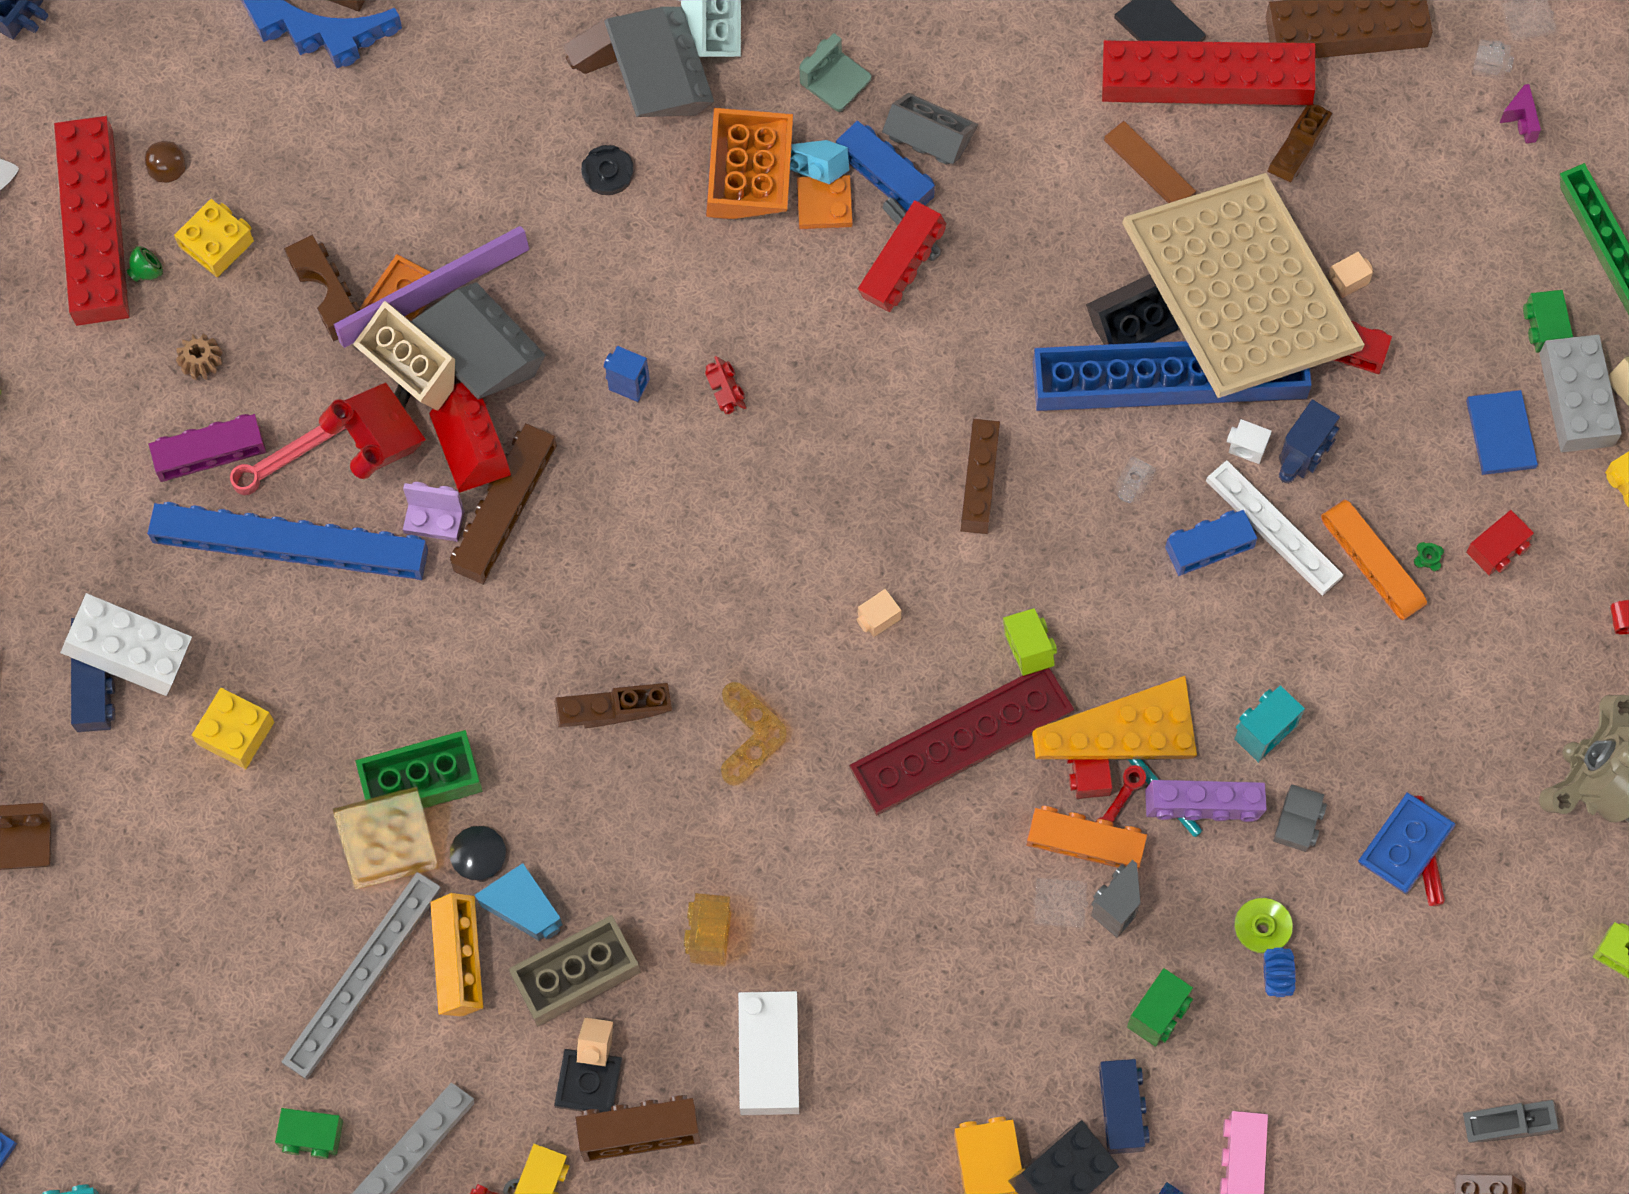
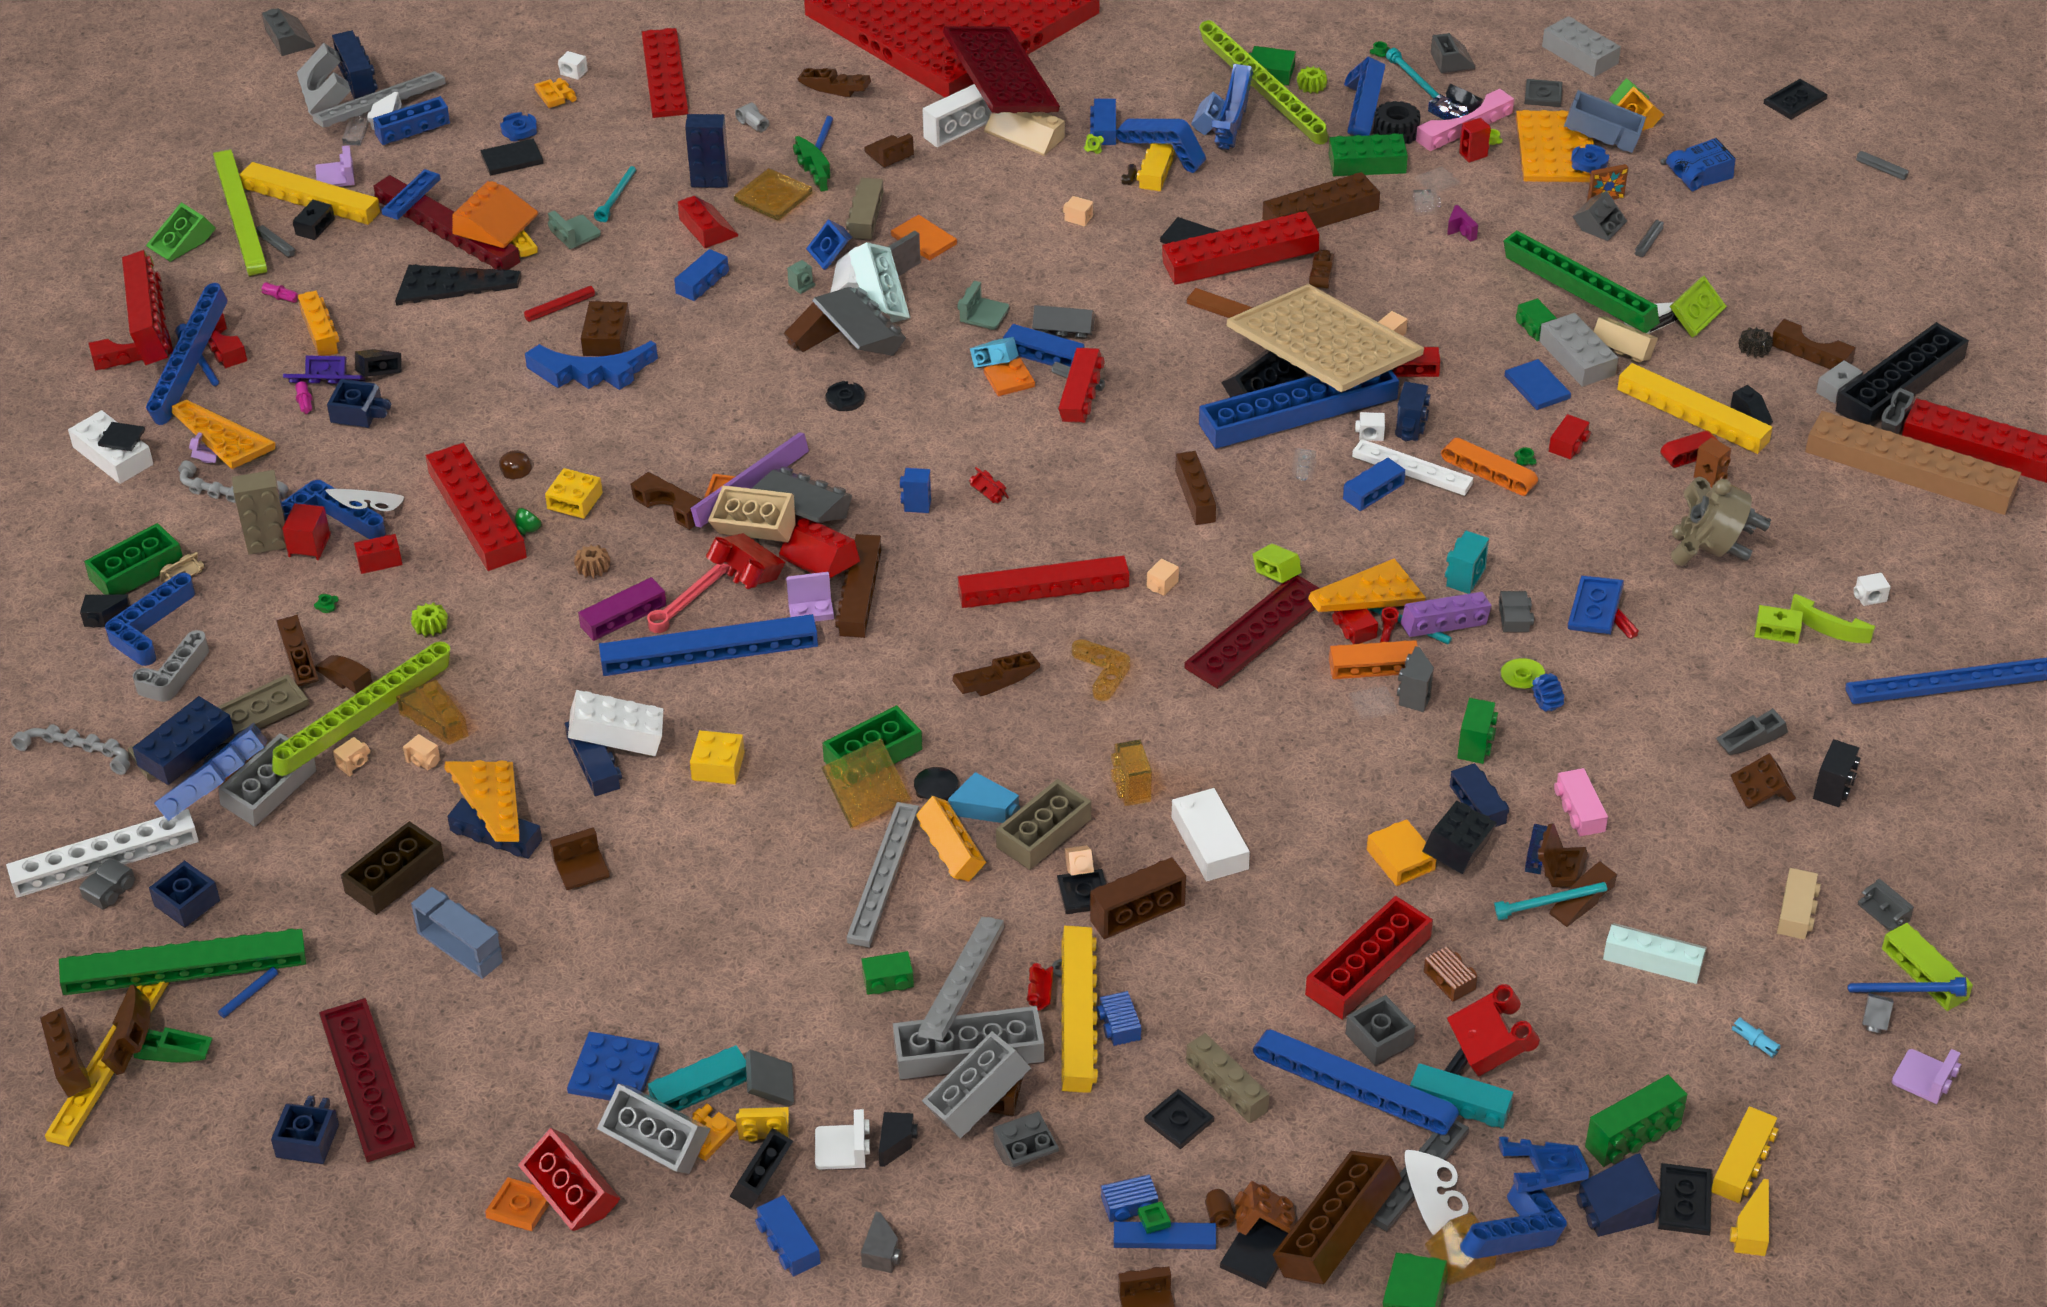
camera: 20 degrees left, 25 degrees down
(729, 572) = (1043, 581): none -> red brick
(749, 163) = (946, 364): orange slope -> none

